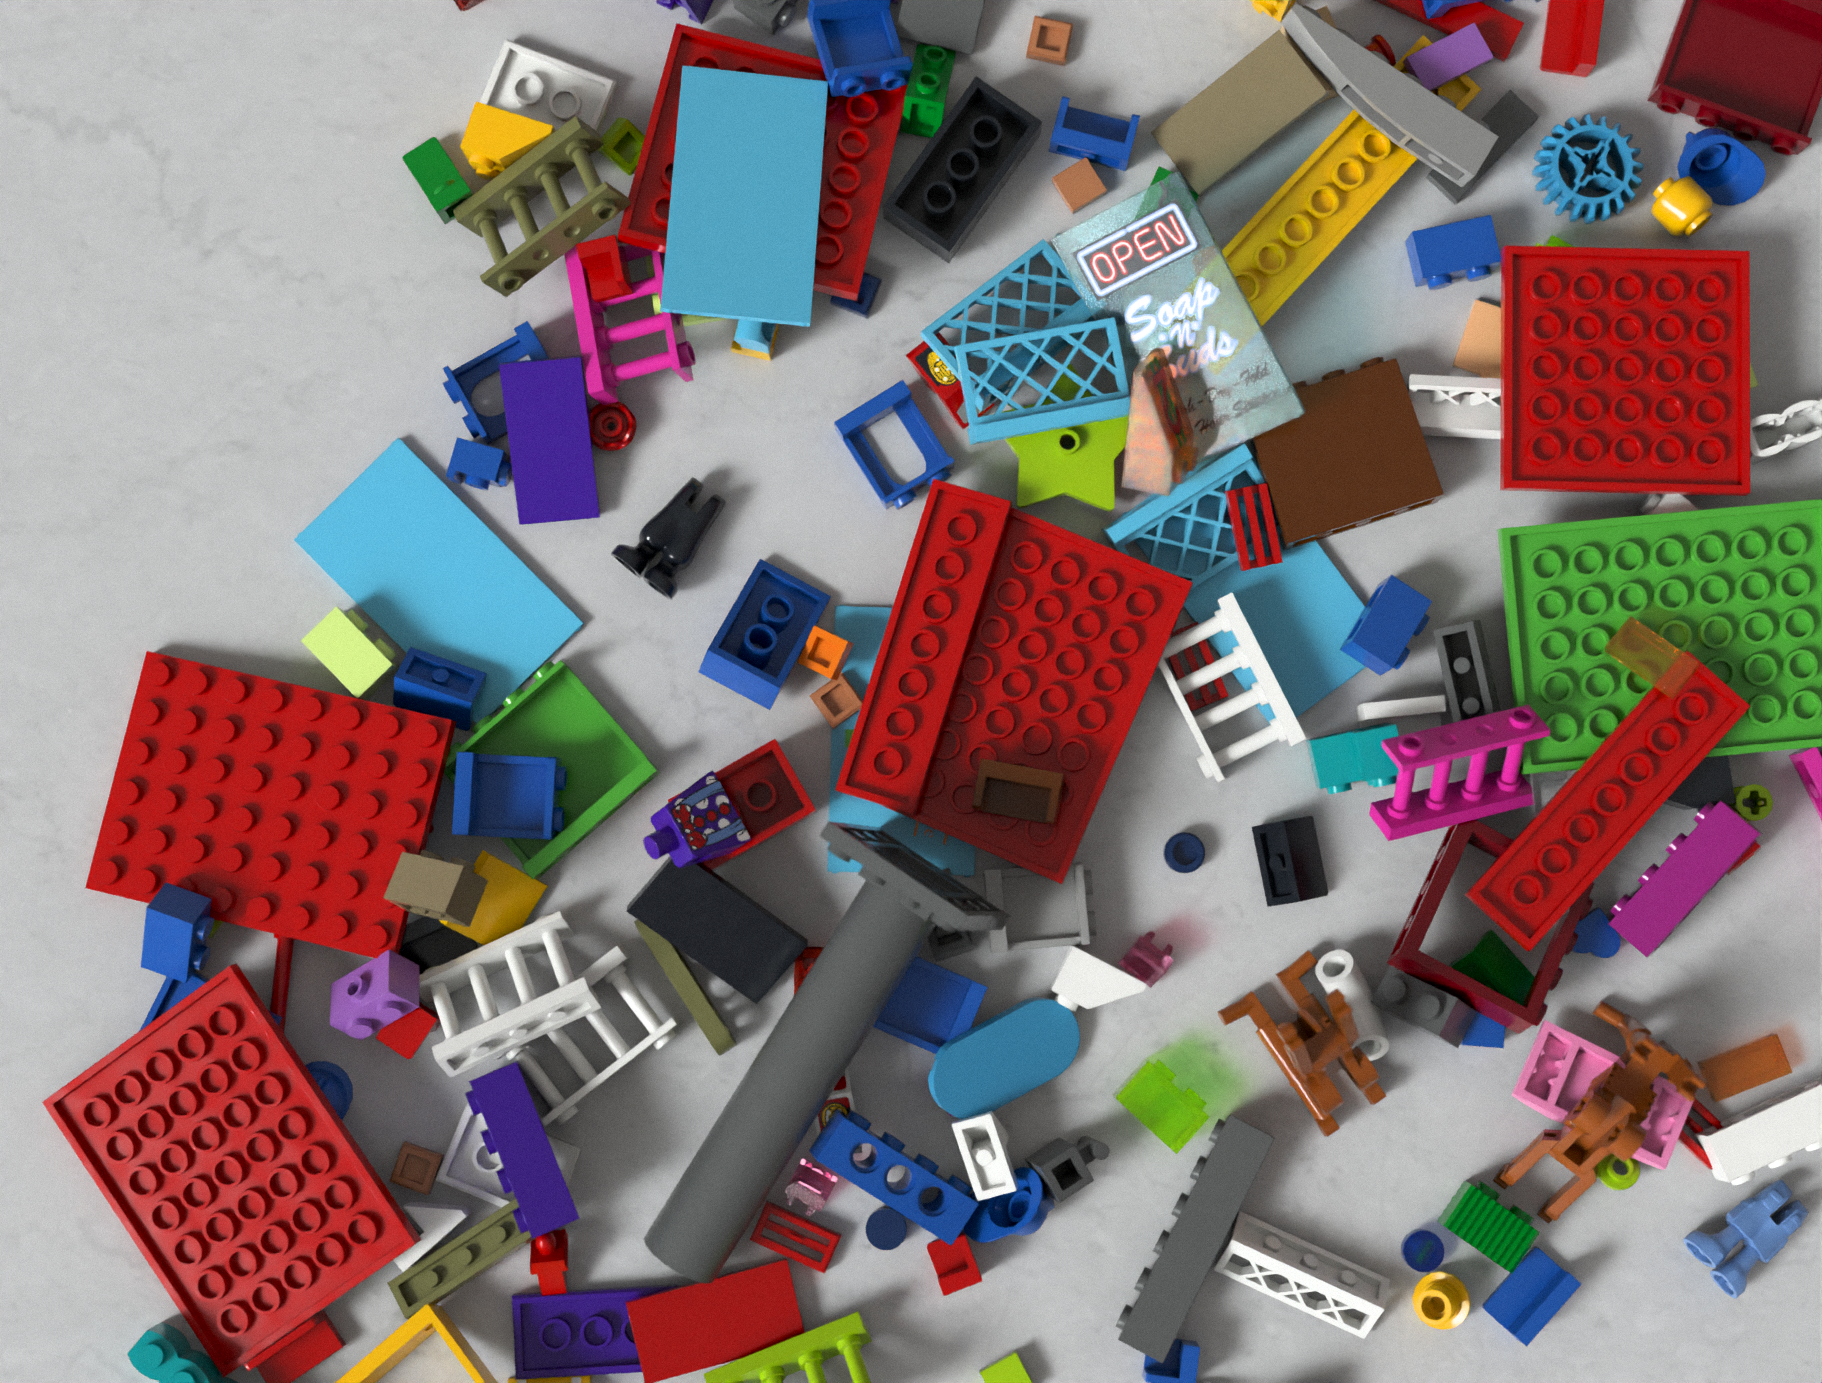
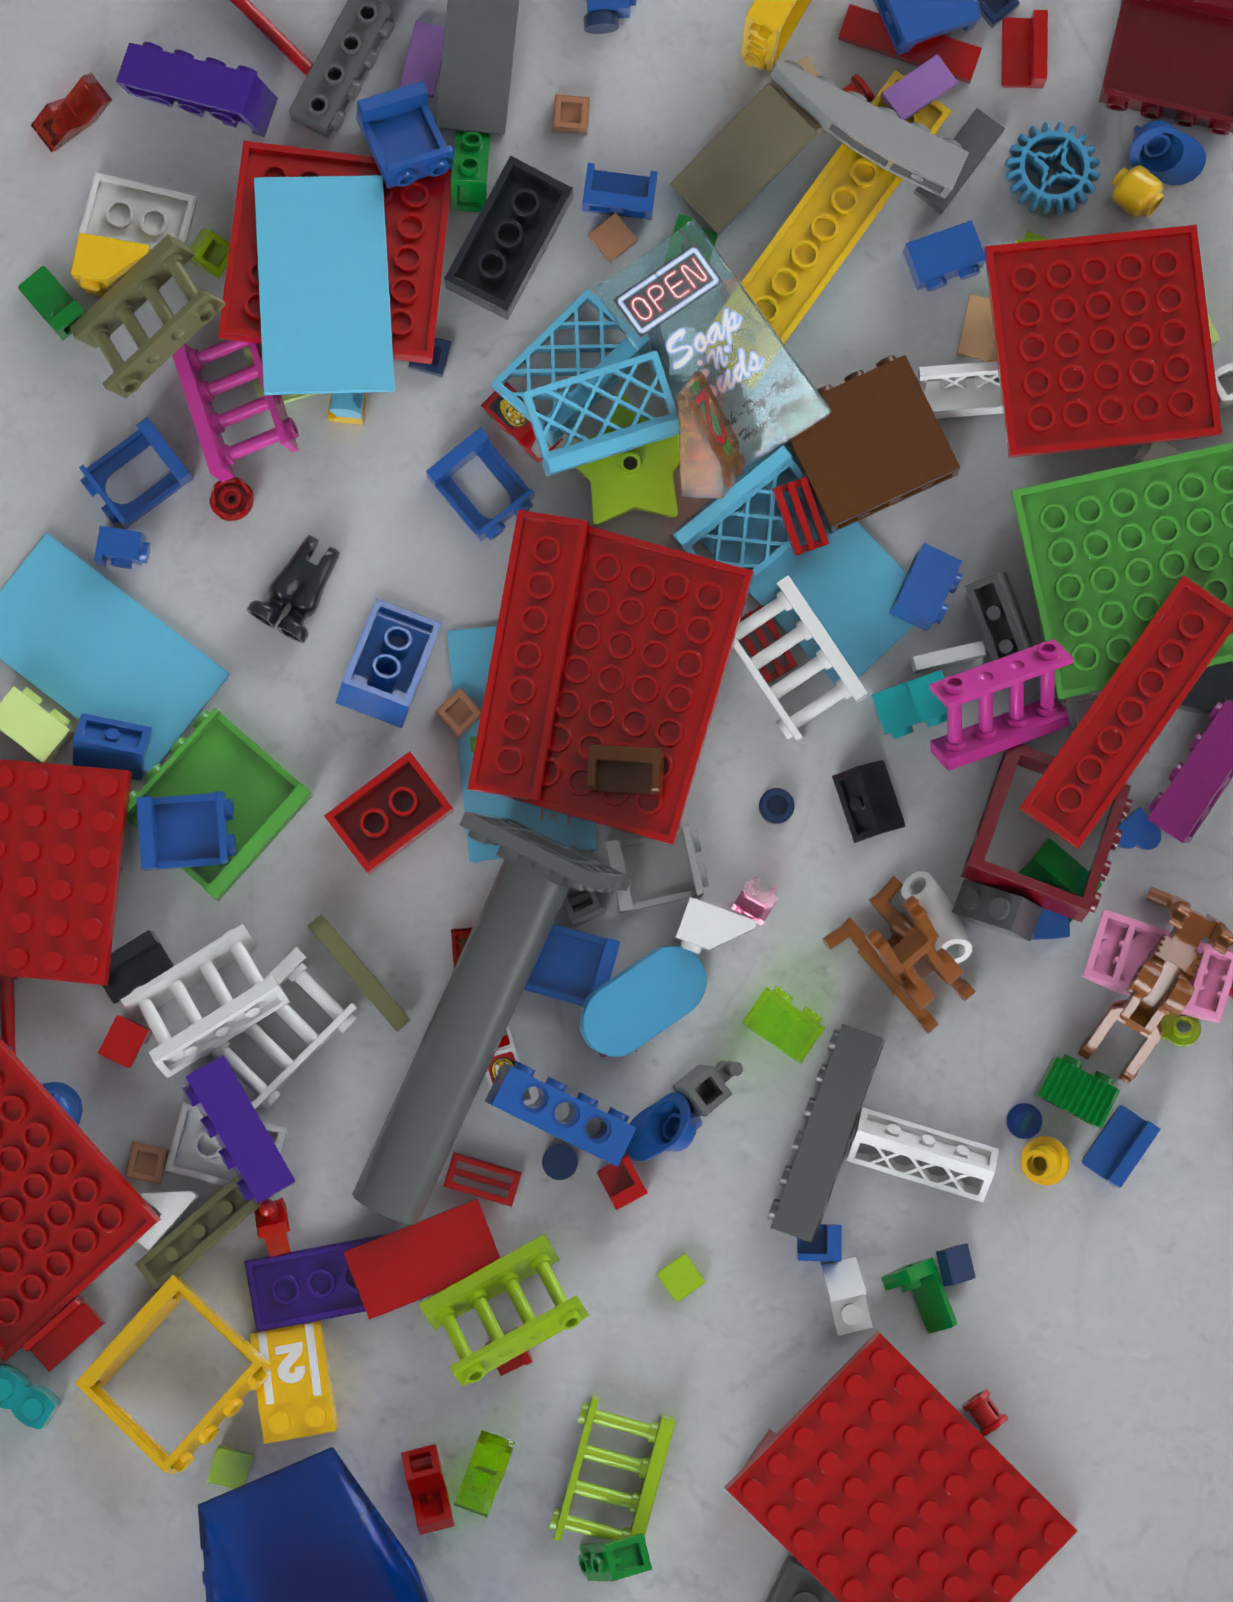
camera: 15 degrees left, 0 degrees up
(374, 995) = (92, 1016): medium lavender brick -> none
(436, 888) = (135, 915): dark tan brick -> none
(505, 901) = (183, 922): yellow tile -> none
(550, 439) = (180, 517): dark purple tile -> none
(606, 268) = (210, 362): red panel -> none
(697, 825) = (353, 832): torso -> none
(718, 927) = (380, 918): black tile -> none
(810, 1186) = (490, 1133): clear pink tile -> none
(825, 652) = (443, 672): orange tile -> none
(985, 1155) = (636, 1085): white slope -> none
(1651, 657) = (1153, 585): clear orange tile -> none

